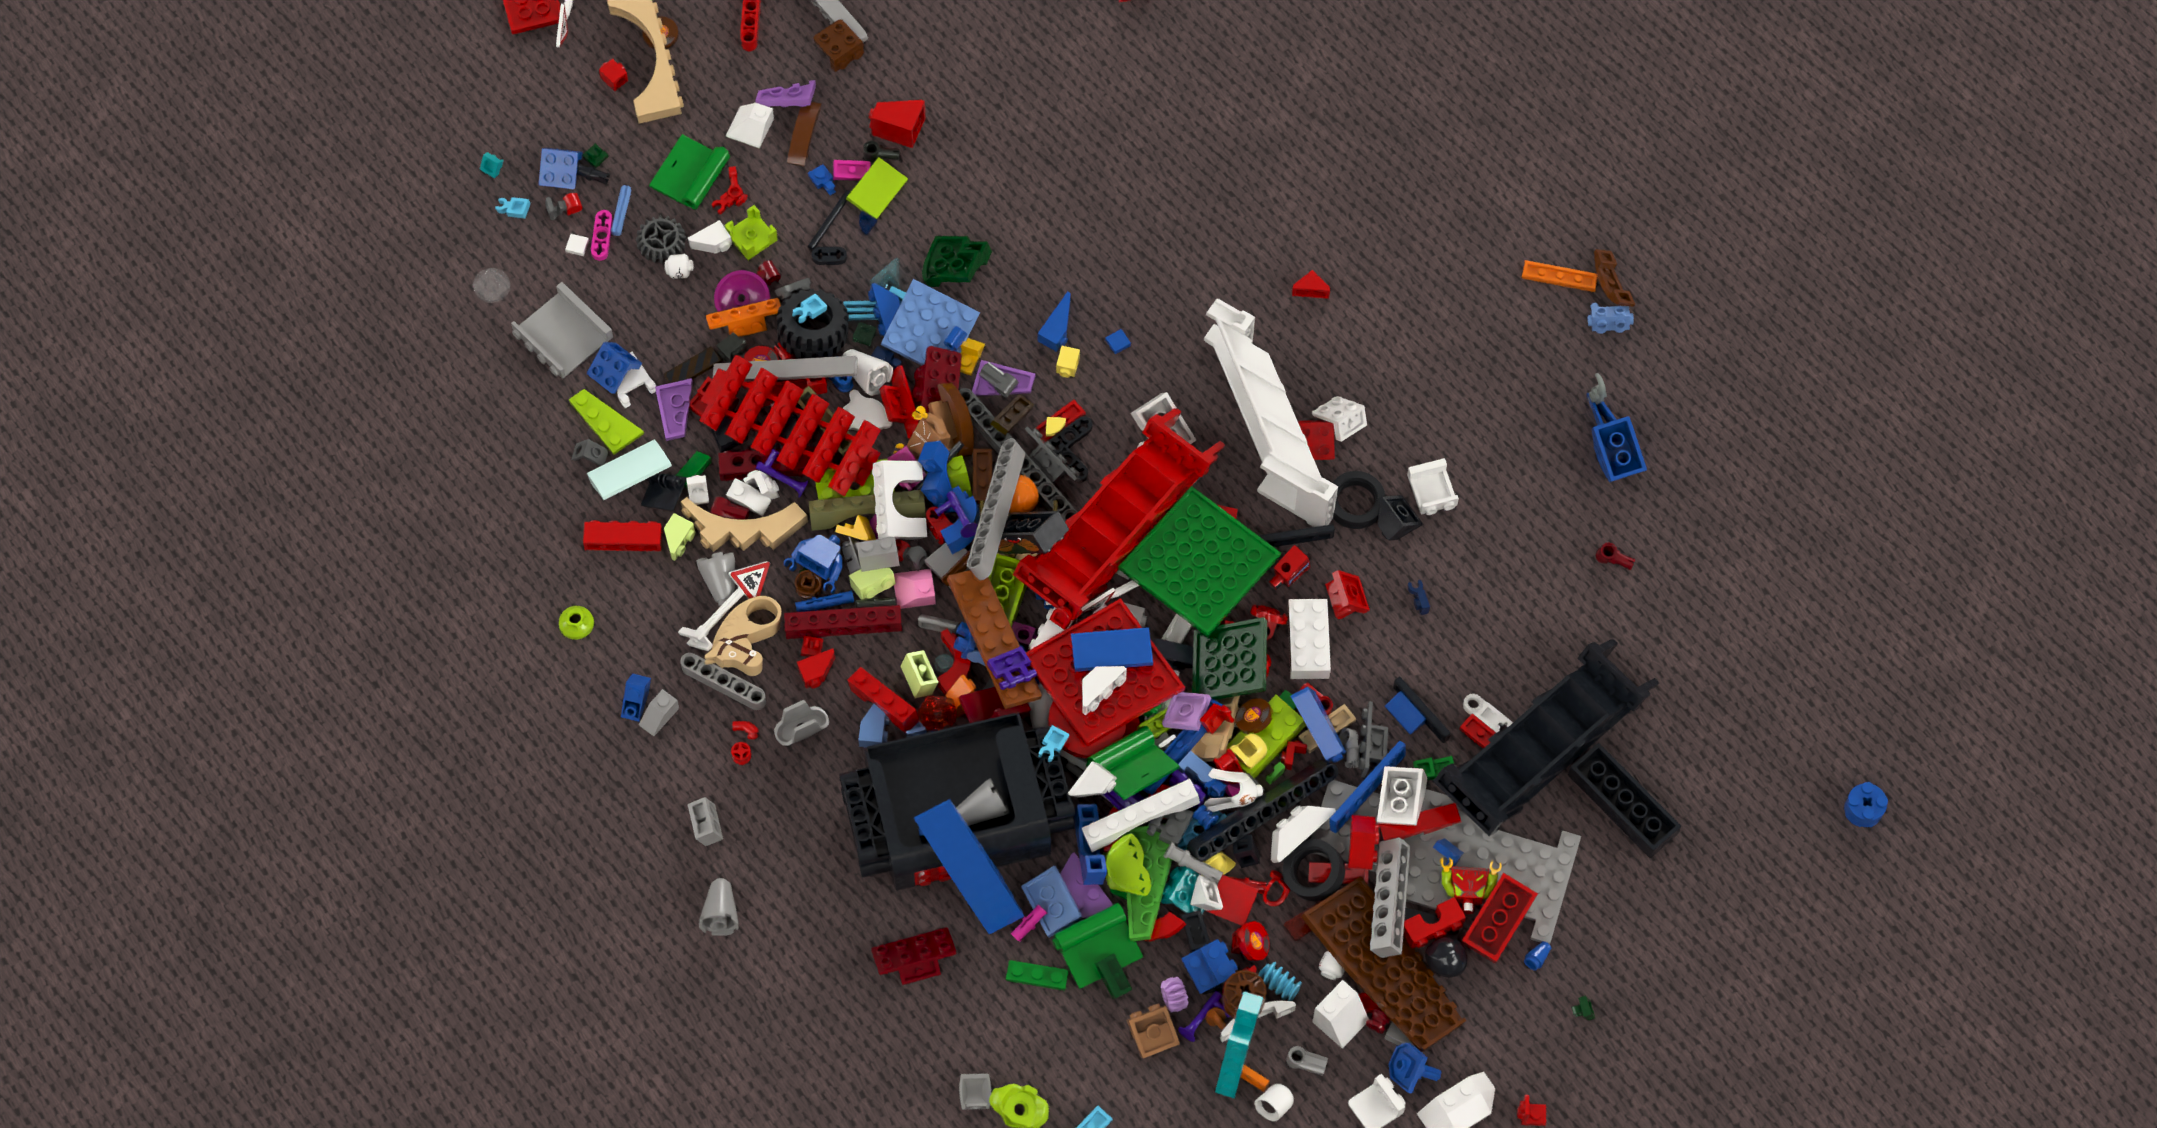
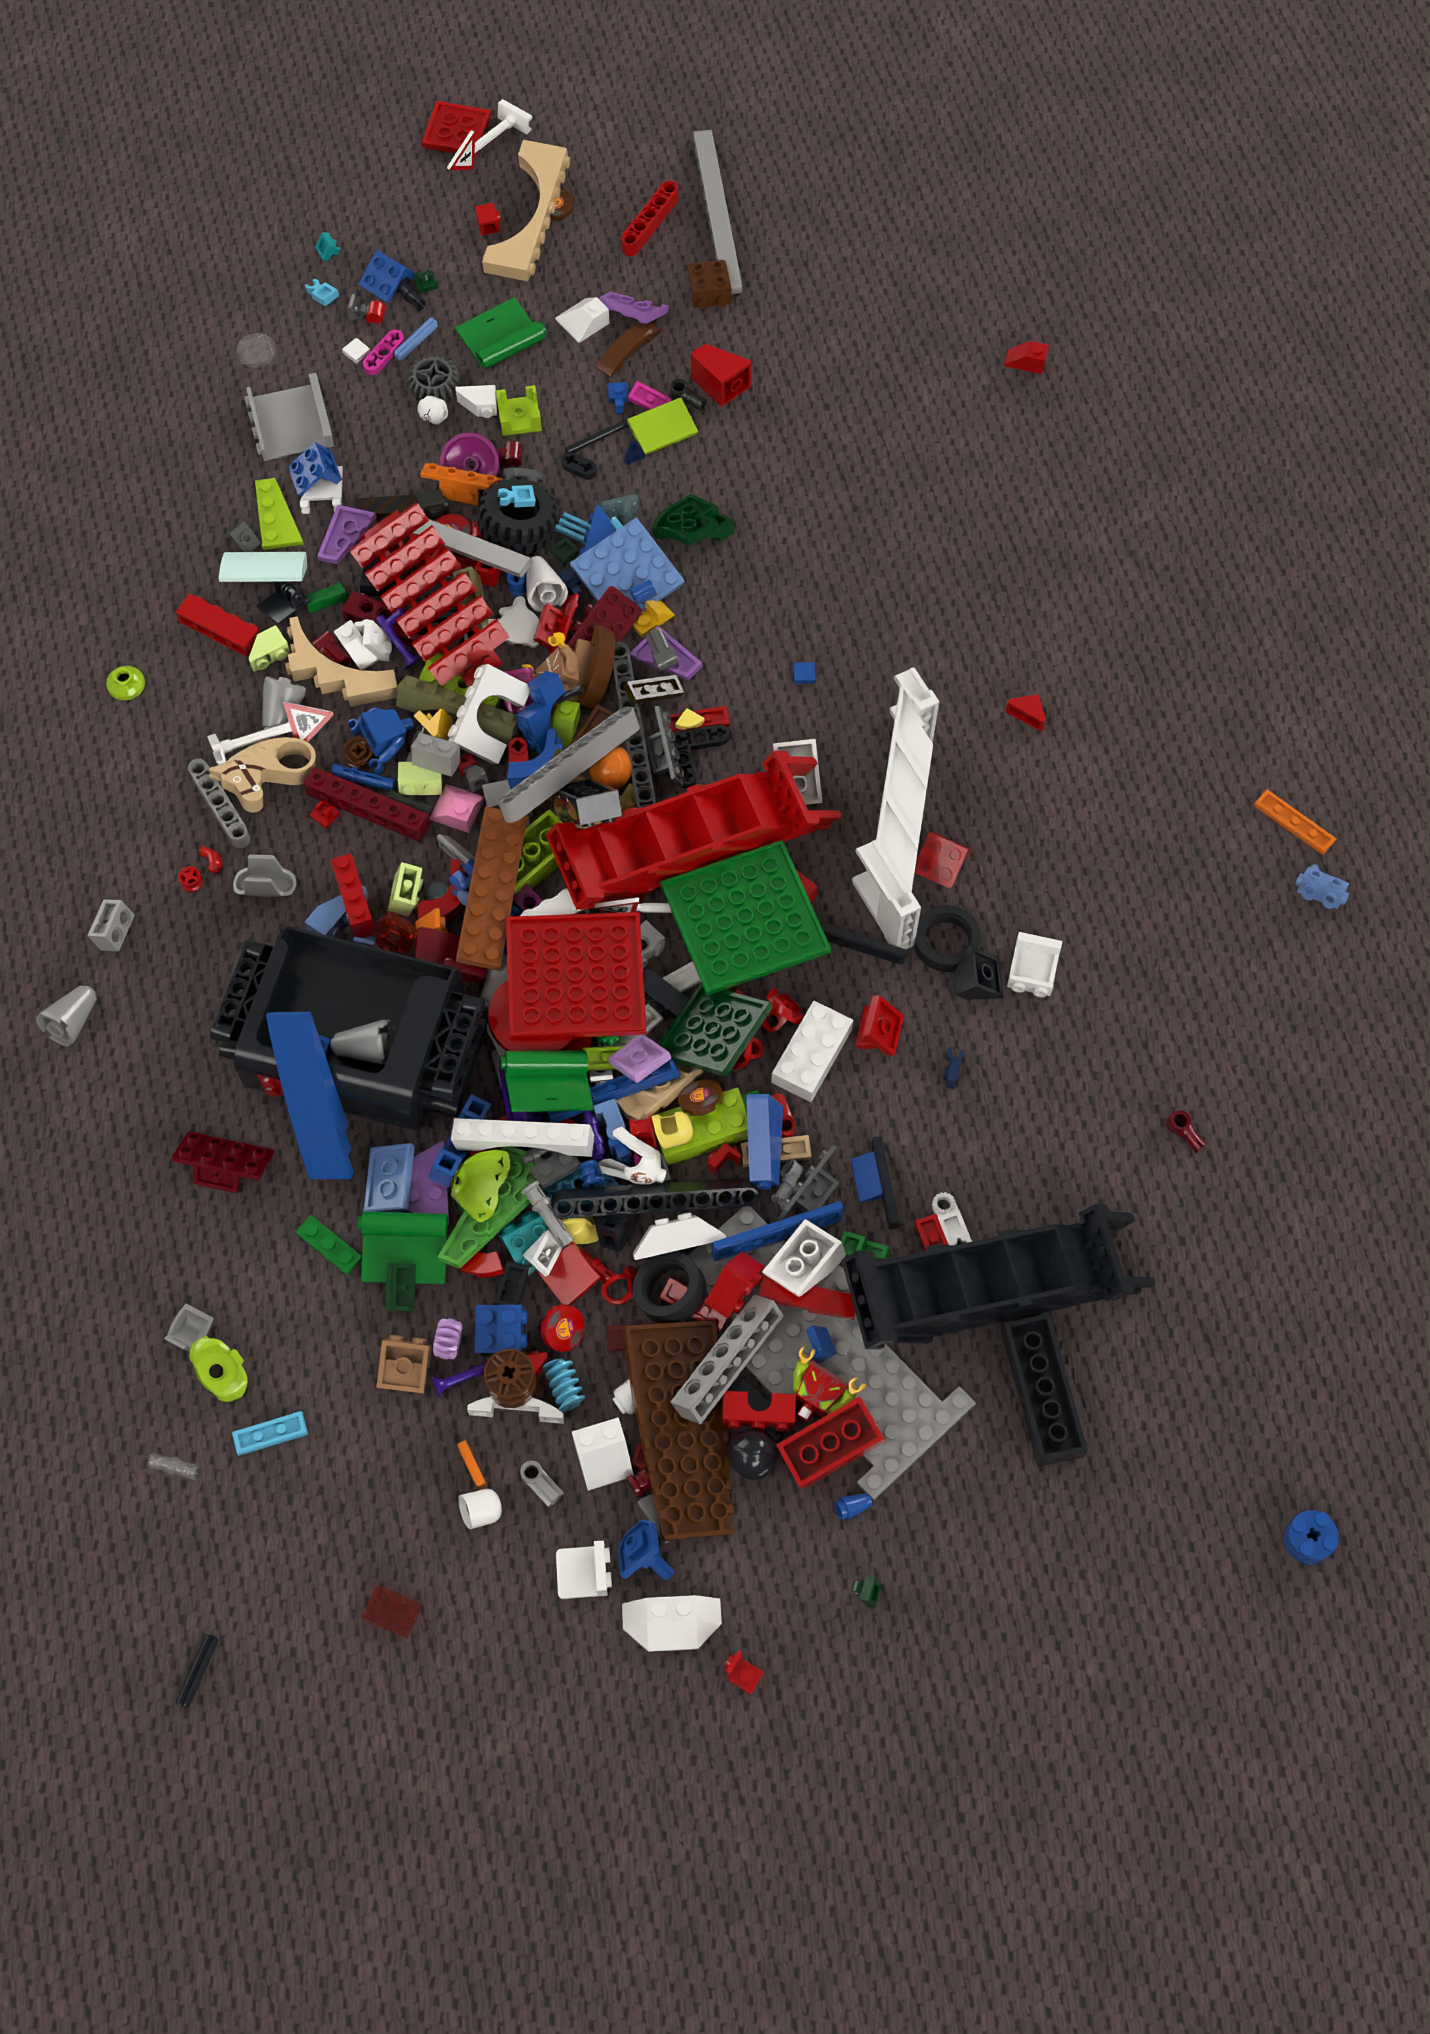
camera: 30 degrees right, 0 degrees up
(635, 697) = (129, 775): blue slope -> none
(659, 712) = (141, 802): light grey slope -> none
(698, 489) = (315, 616): white bracket -> none
(733, 195) = (526, 372): red piece -> none
(816, 668) = (313, 835): red slope -> none
(969, 529) = (539, 743): dark purple piece -> none
(1008, 663) = (483, 917): dark purple plate -> none
(1029, 923) = (352, 1188): dark pink pin -> none
(1053, 741) = (472, 1013): medium azure plate -> none
(1054, 331) = (750, 631): blue slope -> none
(1062, 617) = (567, 900): red tile -> none
(1067, 361) = (741, 667): light yellow brick -> none
(1093, 781) = (489, 1074): white slope -> none
(1100, 685) = (557, 984): white slope -> none
(1111, 649) = (594, 955): blue tile -> none
(1215, 717) = (660, 1078): red bracket -> none
(1216, 1017) = (476, 1385): dark orange plate -> none
(1238, 1044) = (468, 1424): teal arch -> none
(1279, 769) = (698, 1169): bright green tile -> none
(1295, 563) = (835, 971): red torso -> none
(1344, 414) = (983, 850): white bracket -> none
(1605, 265) = (1344, 848): reddish brown slope -> none
(1615, 440) = (1253, 1010): blue slope -> none

